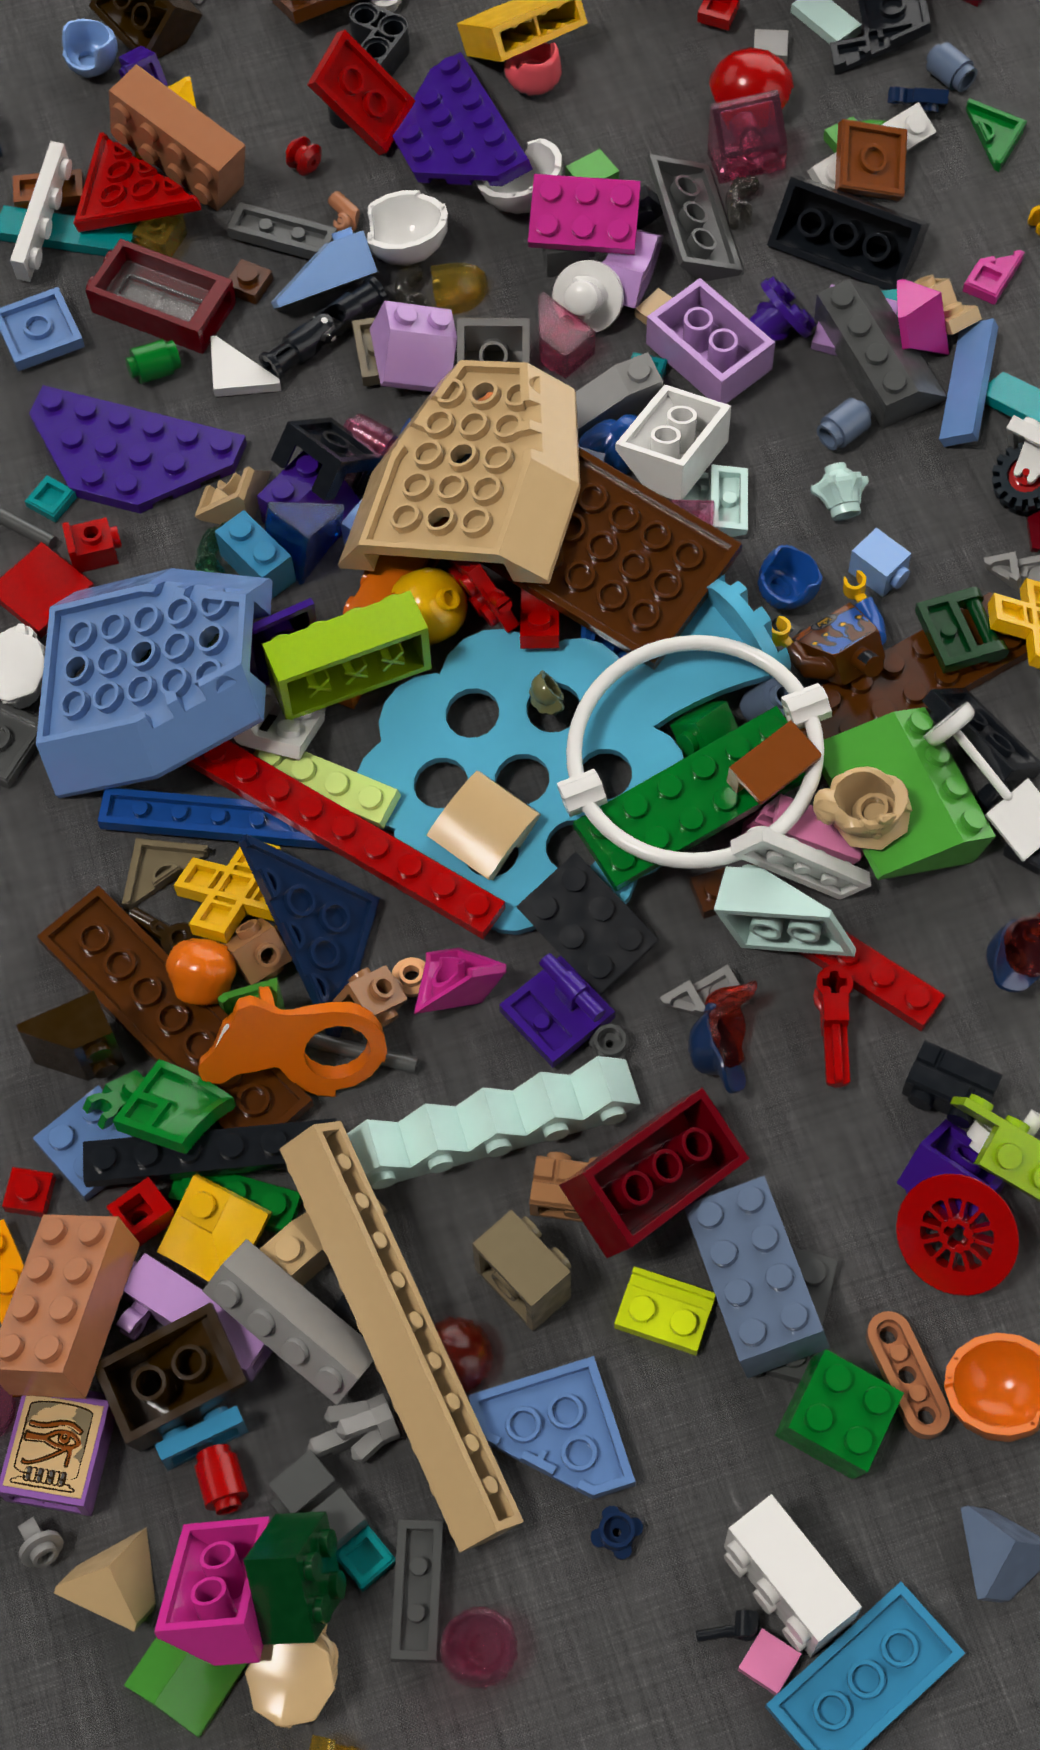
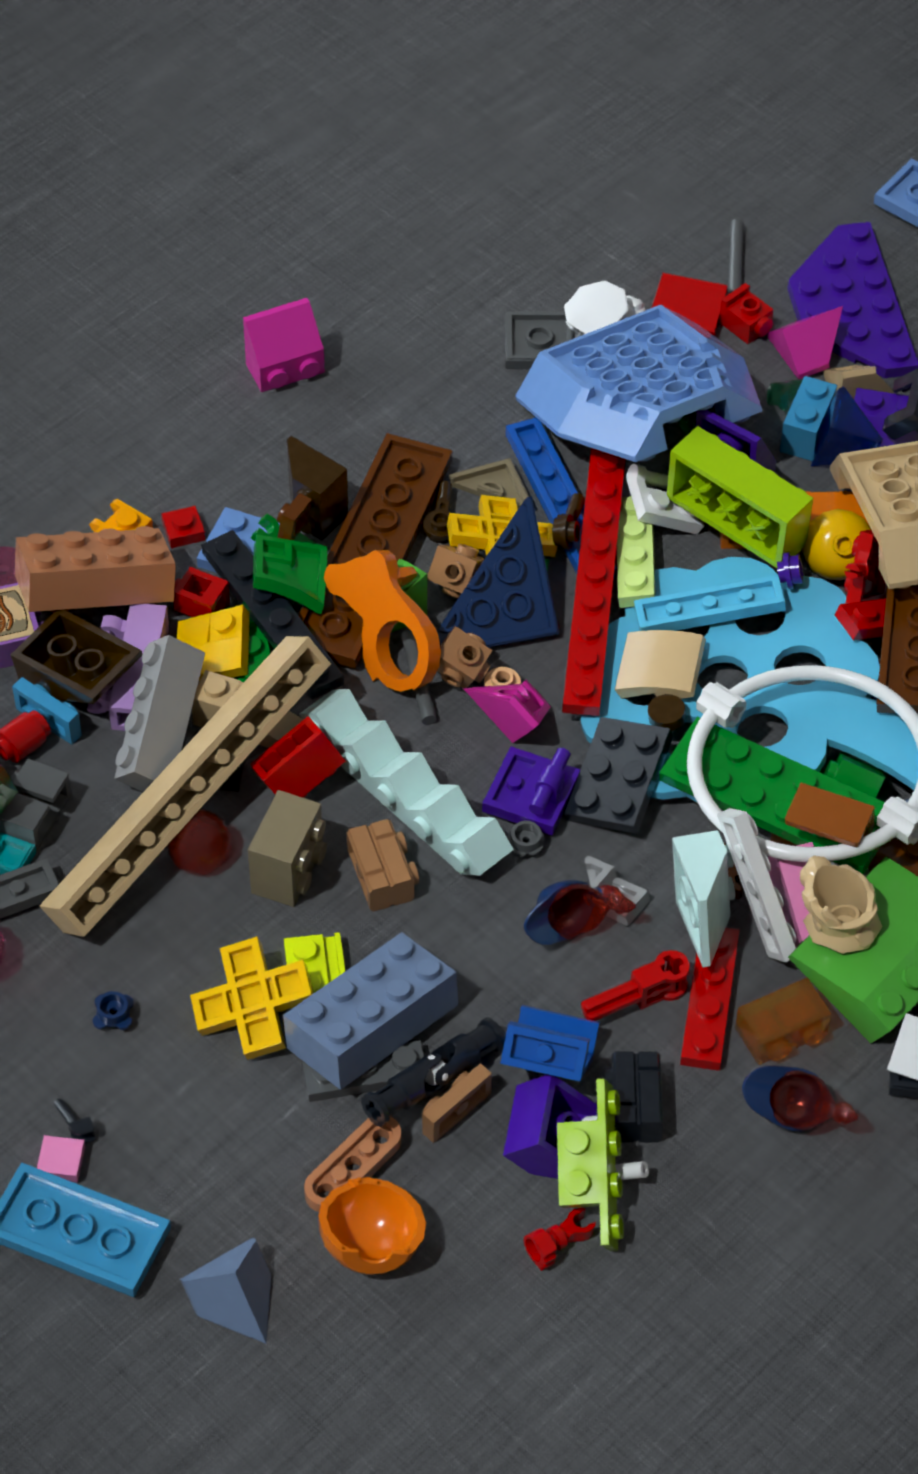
camera: 60 degrees right, 10 degrees down
(51, 498) = (773, 276): teal tile -> none
(113, 1073) = (293, 517): none -> reddish brown plate
(158, 510) = (807, 342): none -> dark pink slope
(200, 970) = (415, 537): orange hair -> none
(274, 827) = (565, 526): none -> dark brown plate
(360, 1426) = (101, 801): light grey rock -> none
(423, 1211) = (298, 760): none -> red brick
(440, 748) = (711, 604): none -> medium azure plate
(448, 658) = (790, 570): none -> dark purple plate
(541, 847) = (667, 712): none -> dark brown tile
(546, 694) = (805, 649): olive piece -> none
(558, 1427) = (177, 935): medium blue plate -> none
(654, 1173) = (416, 895): dark red brick -> none
(679, 1384) = (252, 998): none -> yellow plate
(790, 1577) = (129, 1129): white brick -> none
(839, 1414) = (286, 1118): green brick -> none
(855, 1275) = (437, 1069): none -> black piece
(875, 1134) = (550, 1043): none -> blue panel
(890, 1261) = (465, 1094): none -> medium nougat plate
(928, 1263) = (492, 1142): red piece -> none
(929, 913) = (783, 1020): none -> clear orange piece

